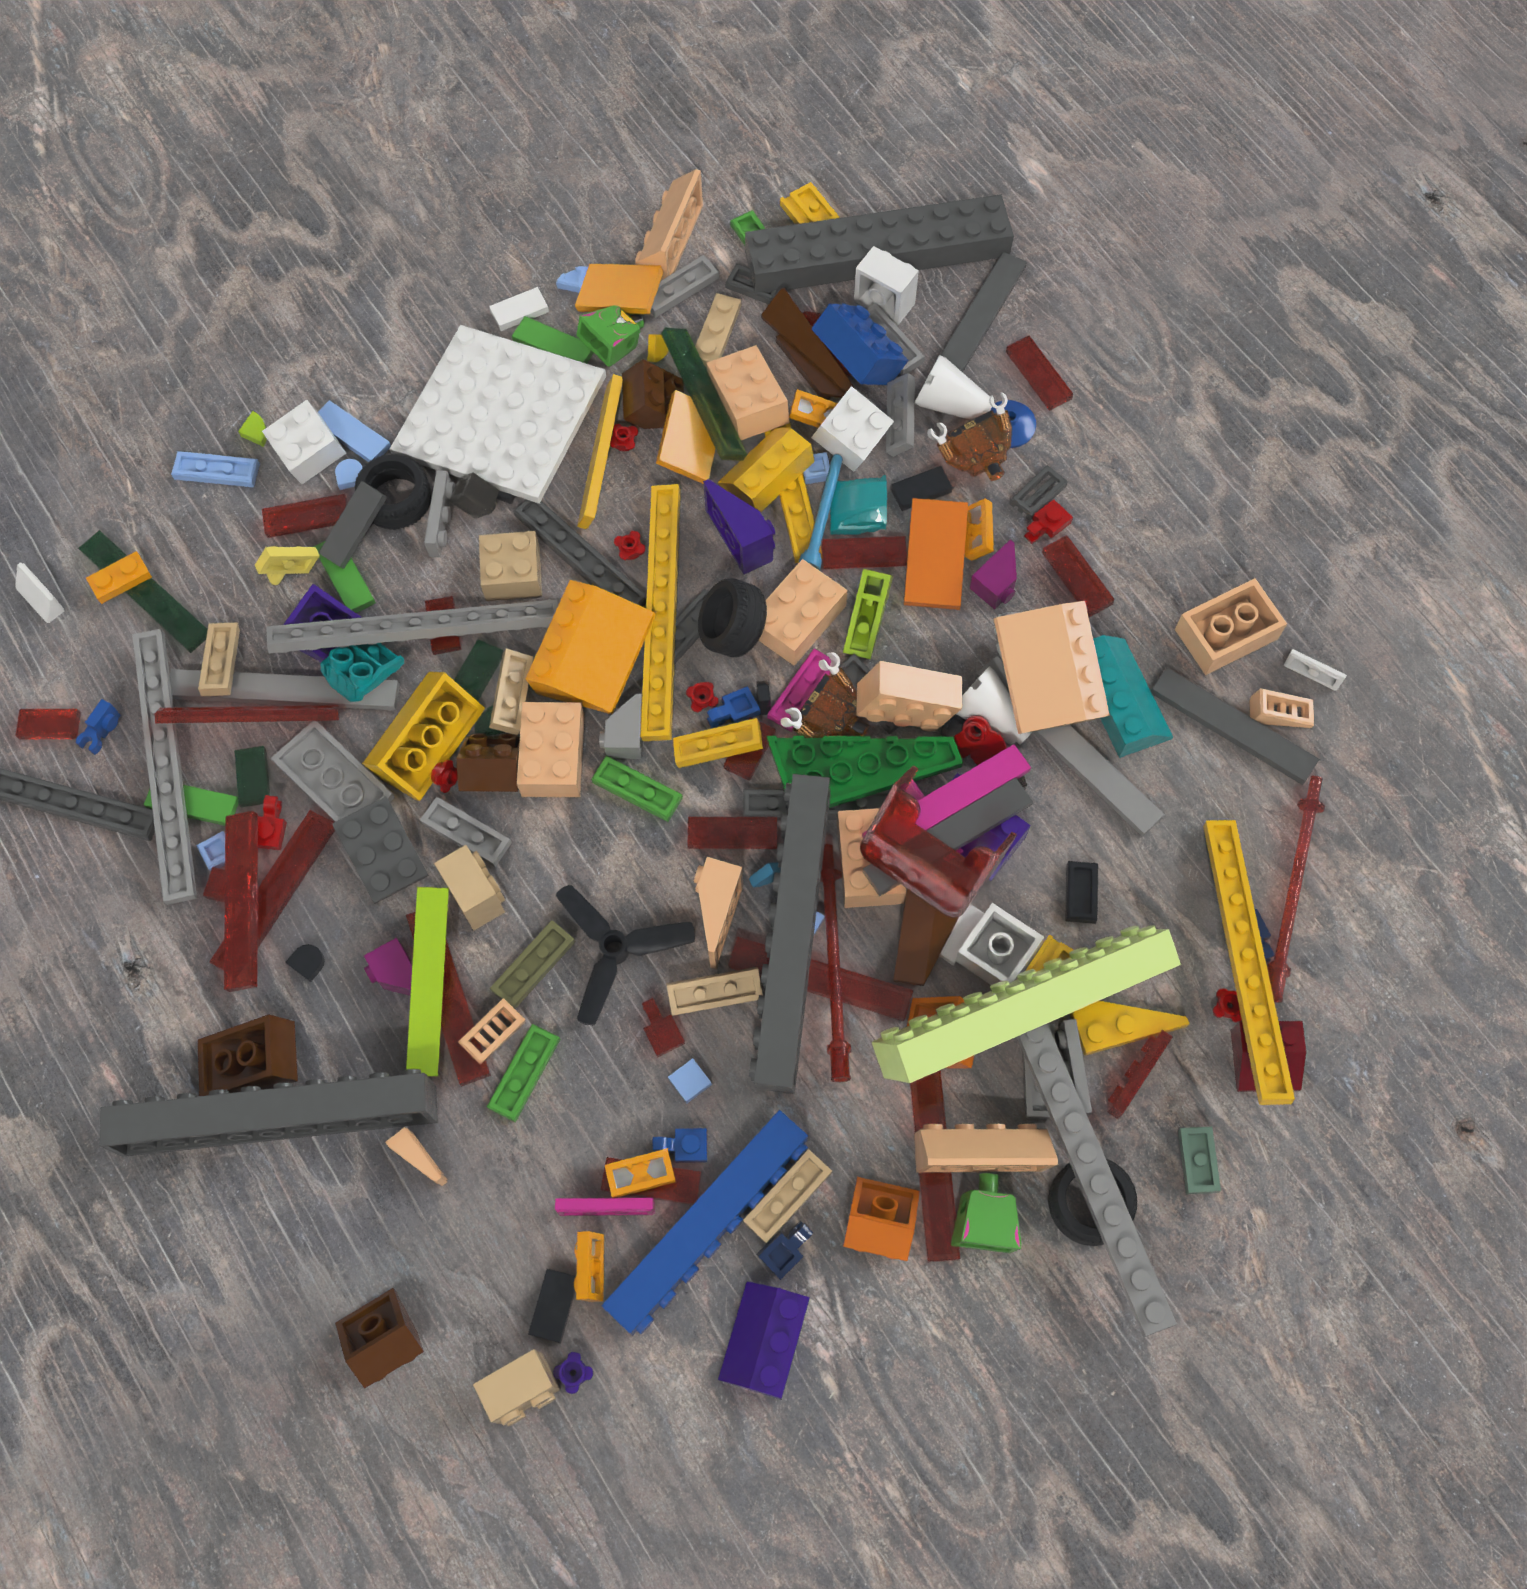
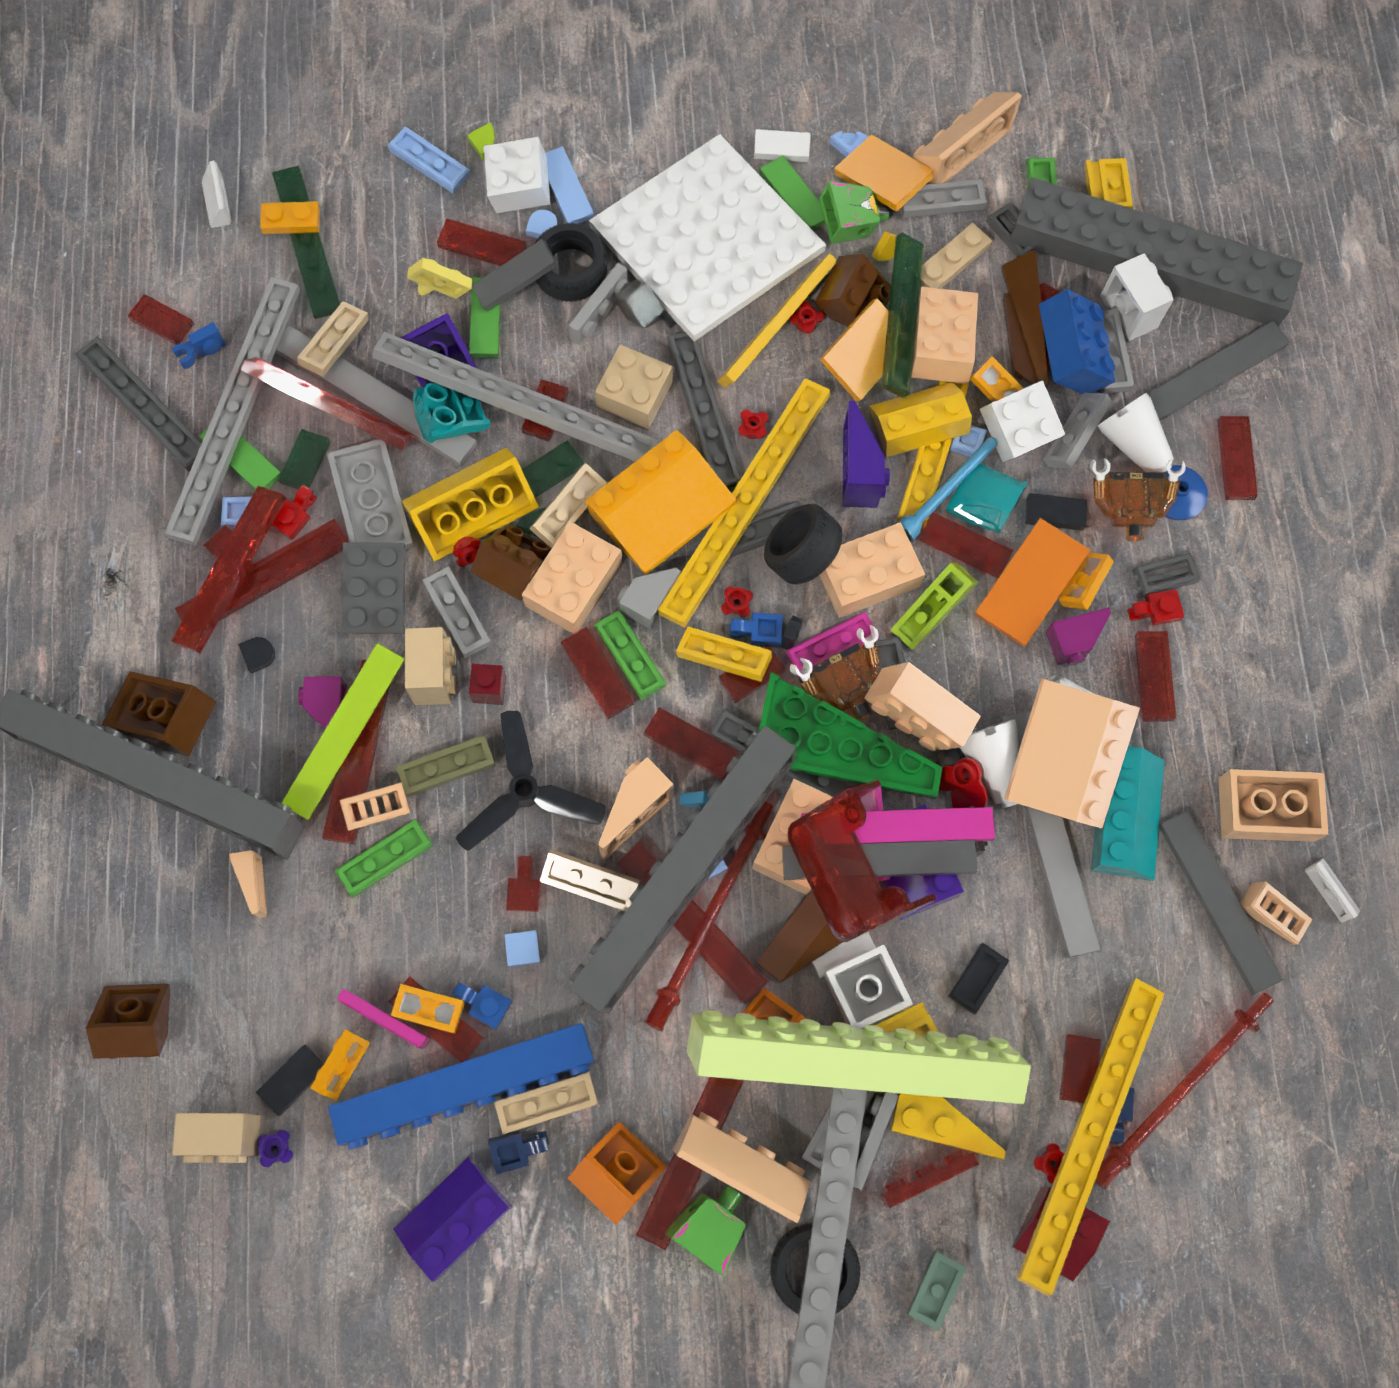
camera: 25 degrees right, 5 degrees up
(529, 876) = (487, 684): none -> dark red brick
(618, 817) = (597, 673): none -> clear red plate
(1204, 918) = (1079, 1067): none -> clear red tile

